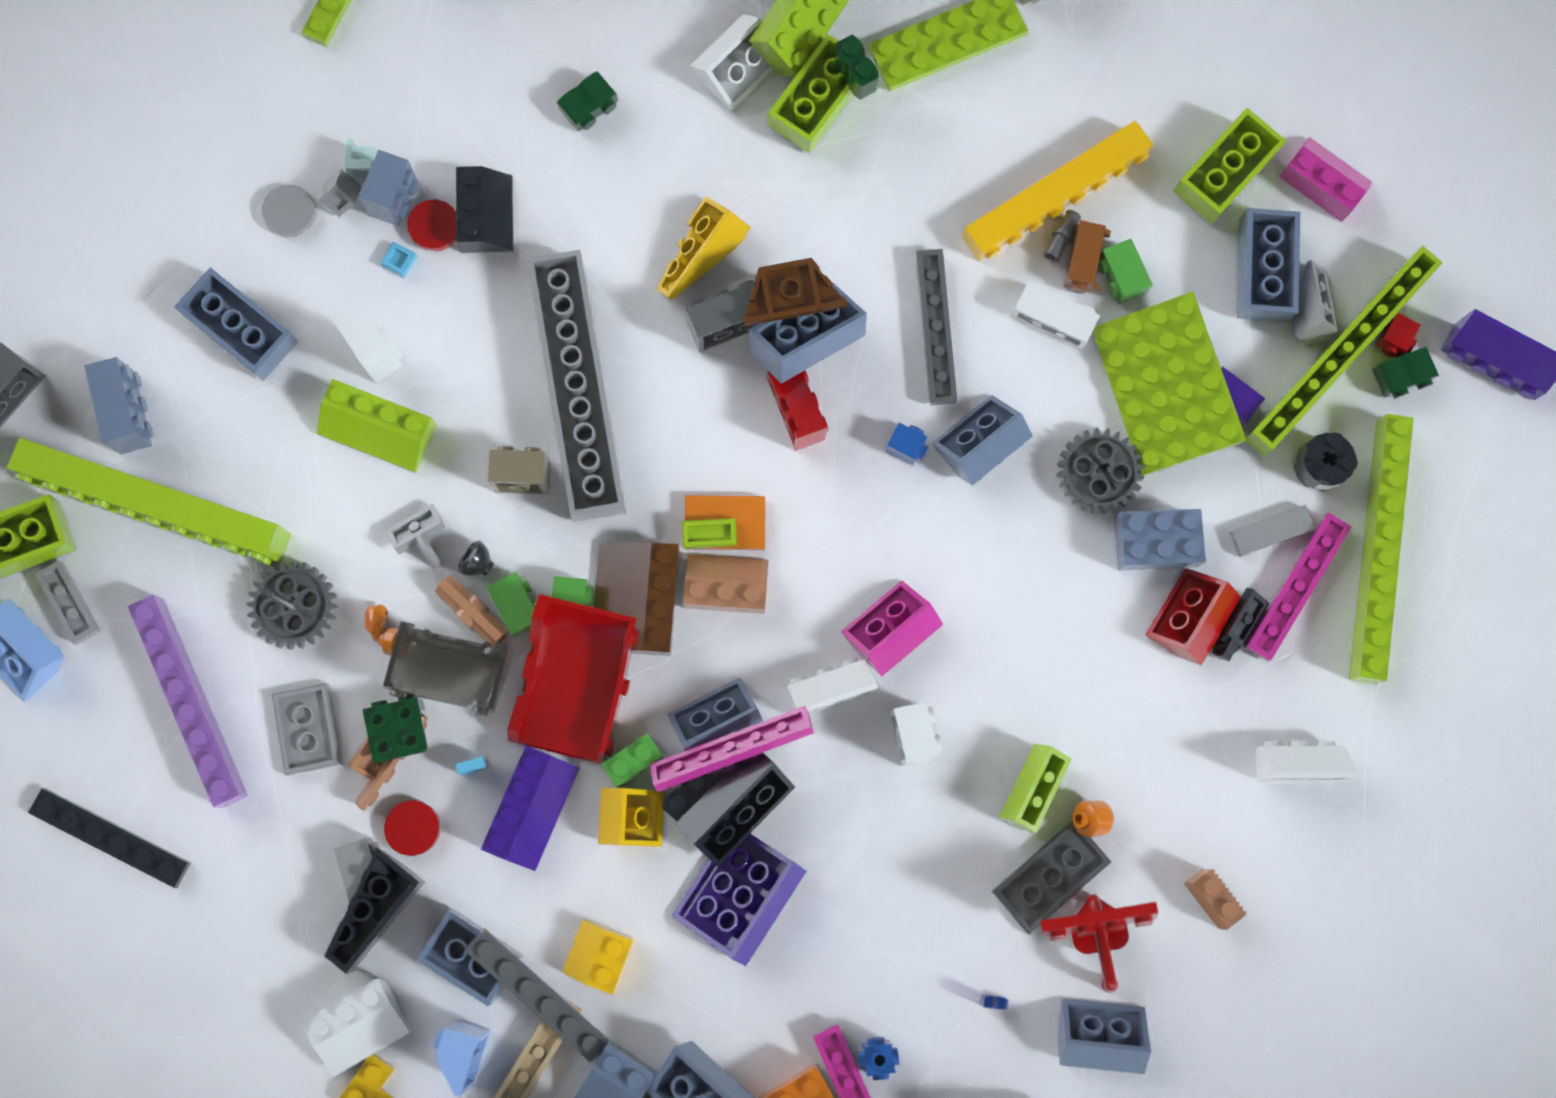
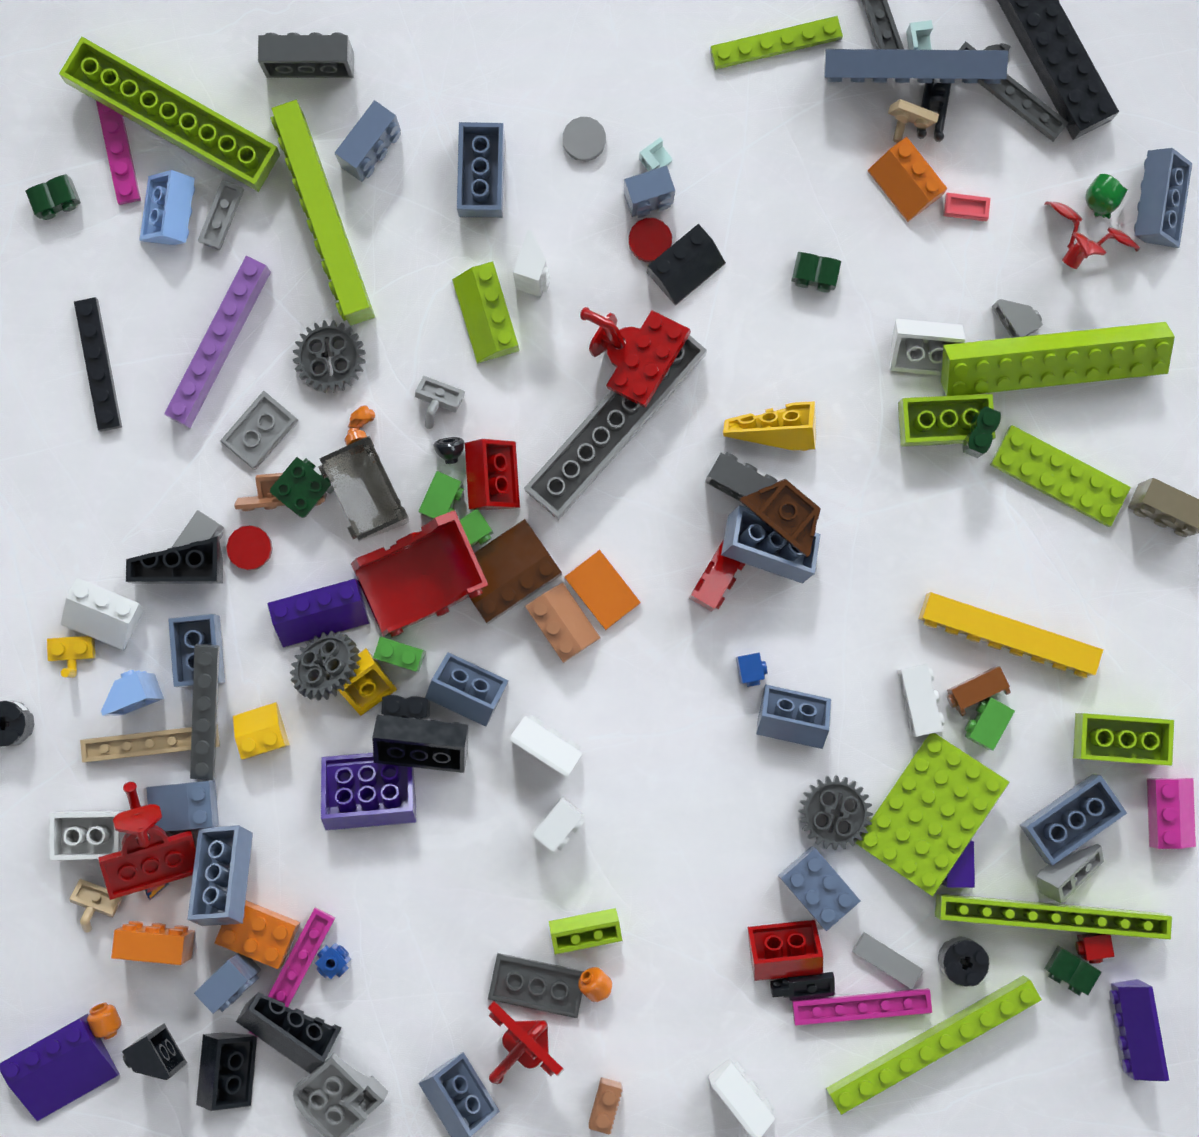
camera: 55 degrees right, 5 degrees up
(340, 193) = (622, 162): light grey panel -> none
(398, 259) = (608, 236): medium azure tile -> none
(471, 611) = (415, 473): nougat piece -> none
(472, 766) = (316, 554): medium azure tile -> none
(519, 470) = (528, 431): dark tan brick -> none
(532, 313) = (643, 358): none -> red plate
(532, 540) = (492, 474): none -> red slope
(580, 859) = (339, 661): none -> dark grey gear
(709, 533) = (586, 586): lime tile -> none
(731, 748) = (453, 713): dark pink plate -> none
(892, 627) = (618, 754): dark pink slope -> none
(936, 327) = (847, 625): dark grey plate -> none
(994, 1002) = (426, 1009): clear blue tile -> none
(1062, 235) = (981, 661): dark grey pin -> none

